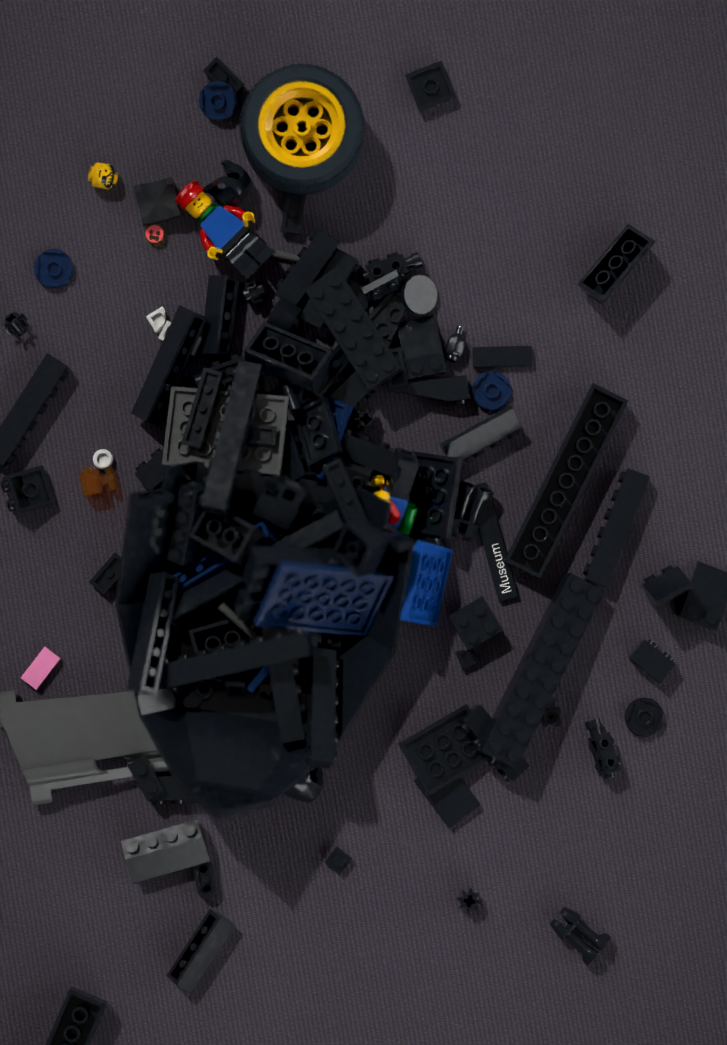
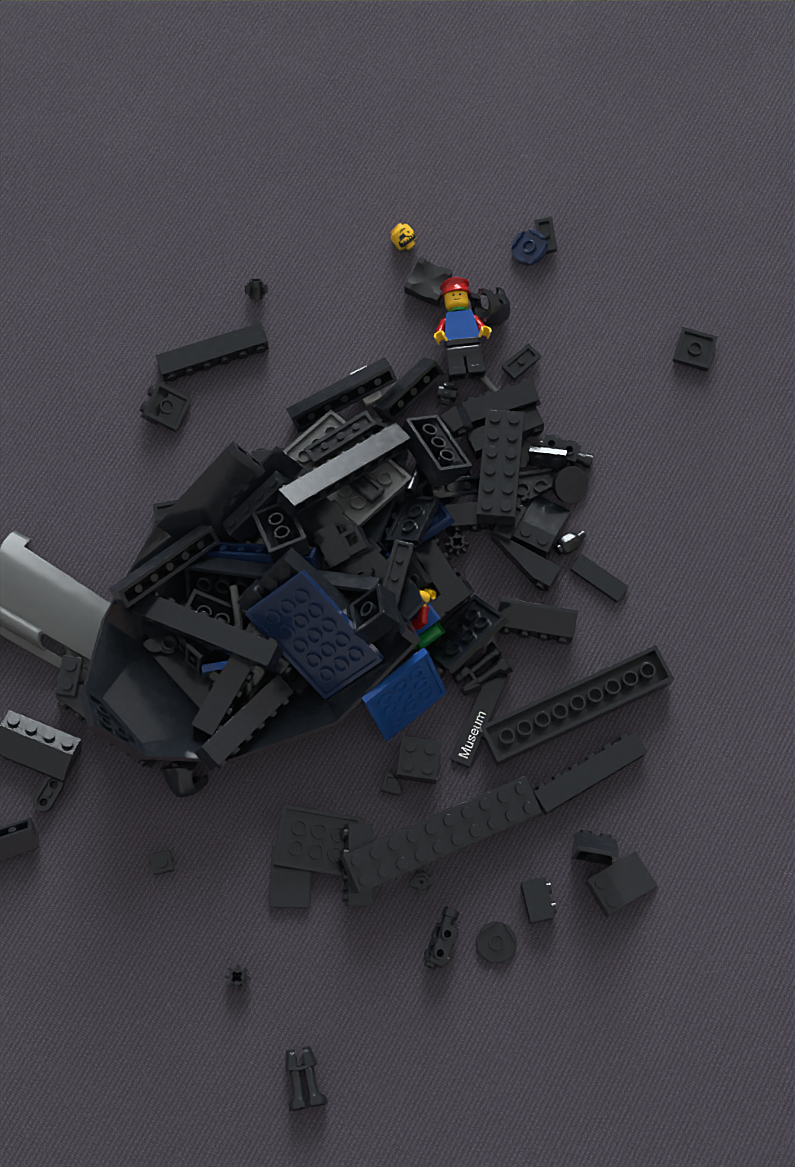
camera: 35 degrees right, 15 degrees down
(40, 668) = (64, 540): bright pink tile -> none
(53, 268) = (315, 274): dark blue tile -> none
(93, 482) = (217, 436): clear orange brick -> none
(102, 459) = (238, 428): white tile -> none
(154, 234) = (407, 303): tile -> none
(157, 319) = (360, 361): white tile -> none
(305, 89) = (583, 272): wheel -> none
(491, 390) = (571, 595): dark blue tile -> none
(615, 264) = (741, 572): black slope -> none

